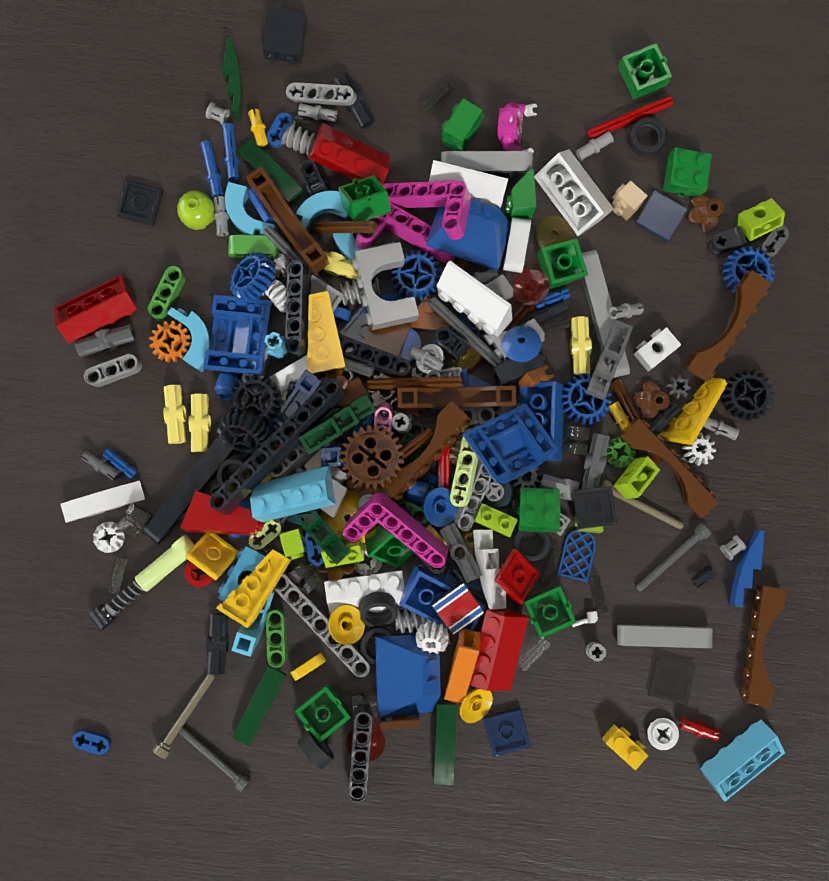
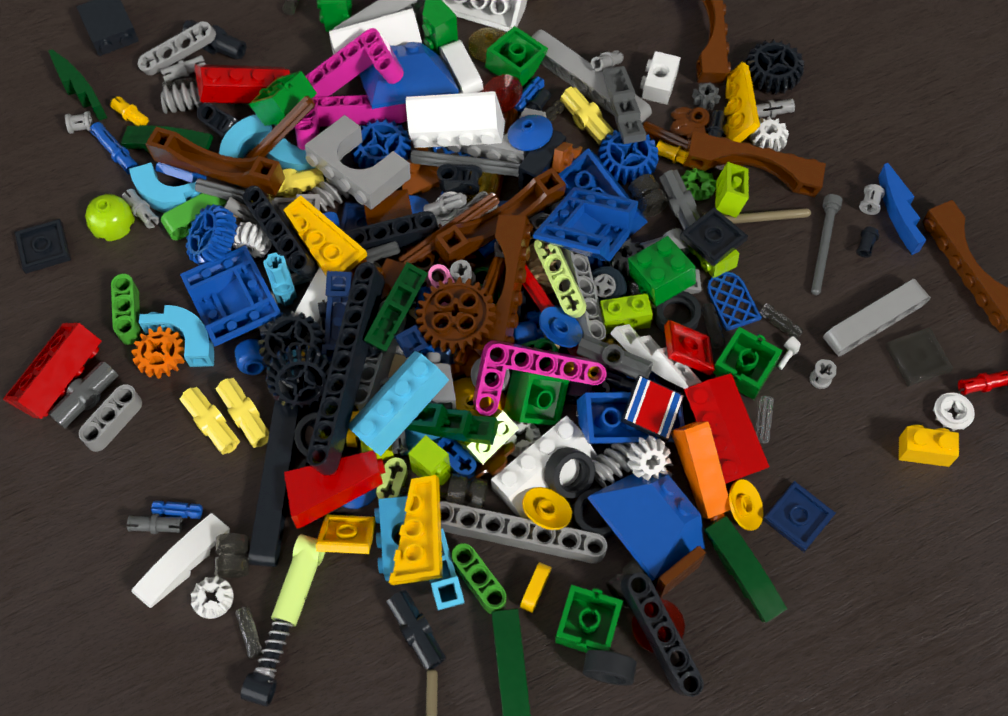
camera: 30 degrees left, 20 degrees down
(192, 576) = (337, 577): red gear -> none
(213, 176) = (109, 178): blue pin -> none
(276, 127) = (149, 104): blue beam -> none

